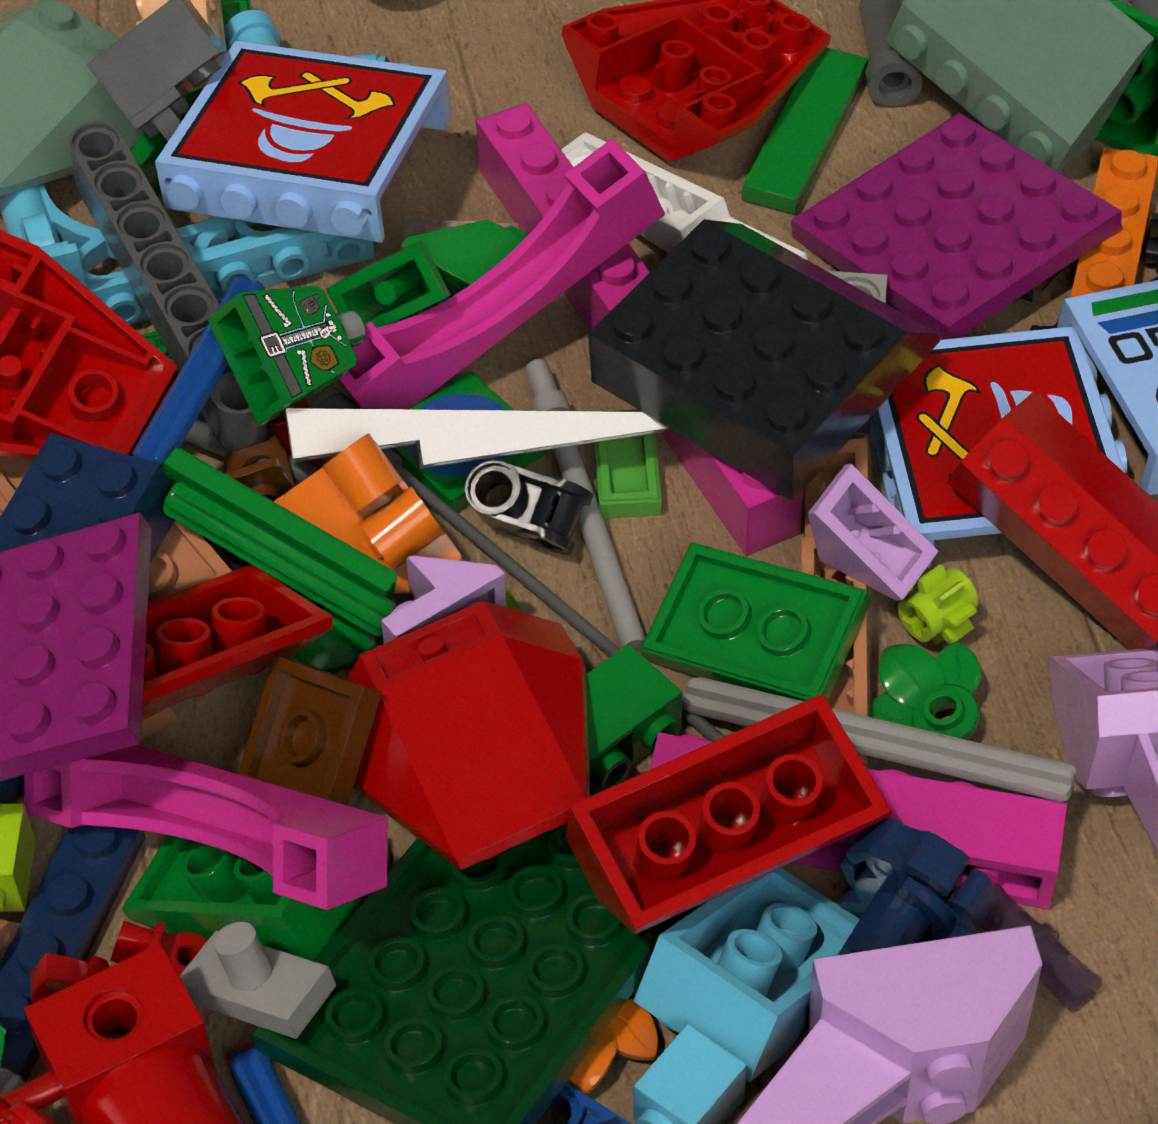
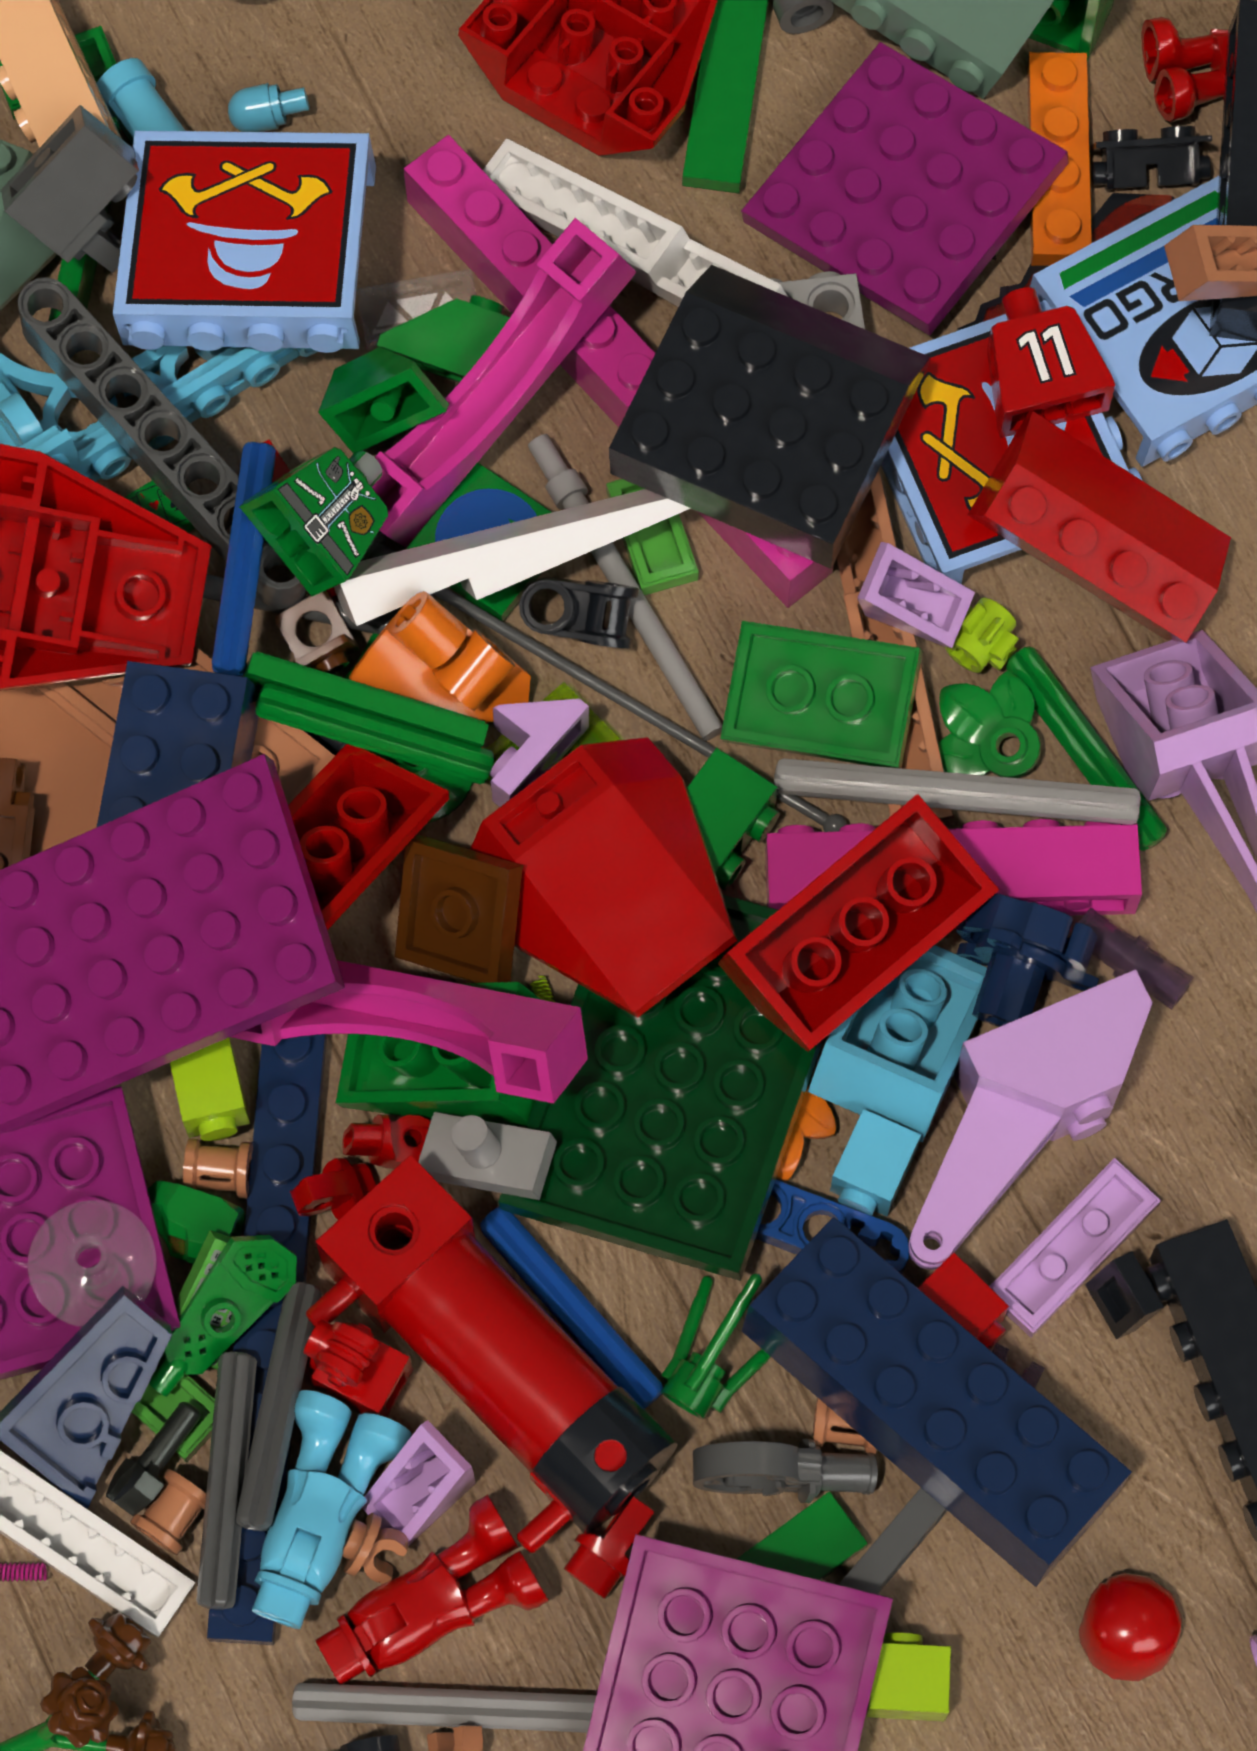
camera: 15 degrees left, 20 degrees up
(1026, 727) = (1080, 737): none -> green axle
(1064, 362) = (1044, 365): none -> red torso

